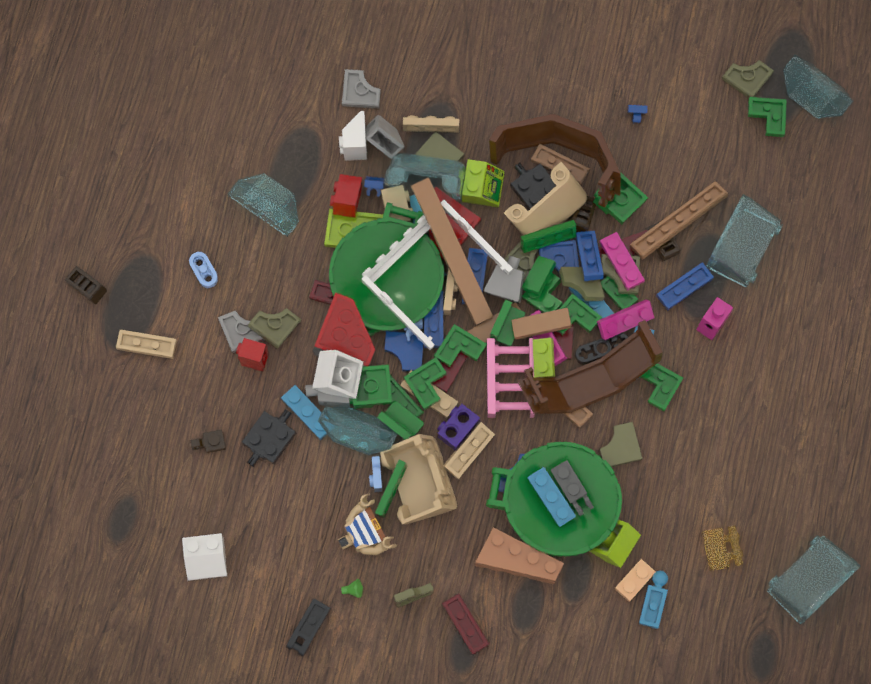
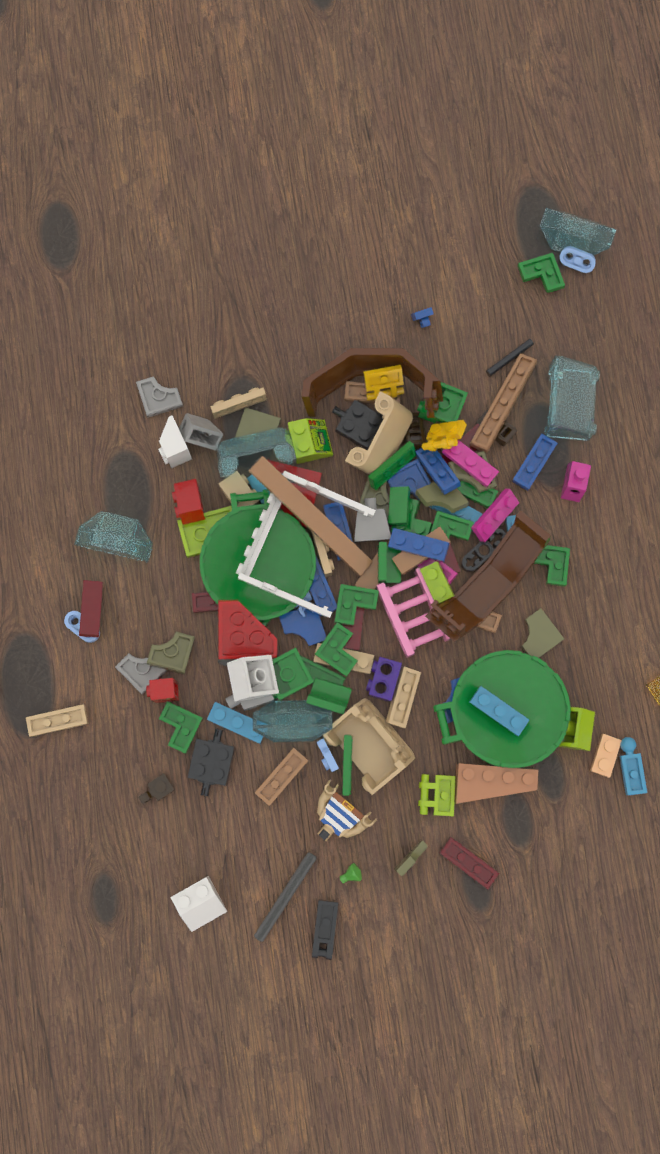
camera: 25 degrees left, 5 degrees up
(218, 256) = (91, 608): none -> dark red tile
(260, 394) = (185, 723): none -> green plate
(285, 584) = (285, 897): none -> dark grey axle
(327, 476) = (281, 776): none -> medium nougat plate
(374, 183) = (208, 479): blue tile -> none
(468, 553) = (443, 795): none -> lime plate
(540, 316) = (418, 545): none -> blue plate
(571, 485) = (512, 692): dark grey hinge -> none
(573, 153) = (384, 378): none -> yellow plate
(608, 227) = (444, 435): none -> yellow plate
(704, 181) = (504, 361): none -> black bar
(748, 78) = (508, 247): olive tile -> none
(807, 117) = (576, 262): none -> light blue plate

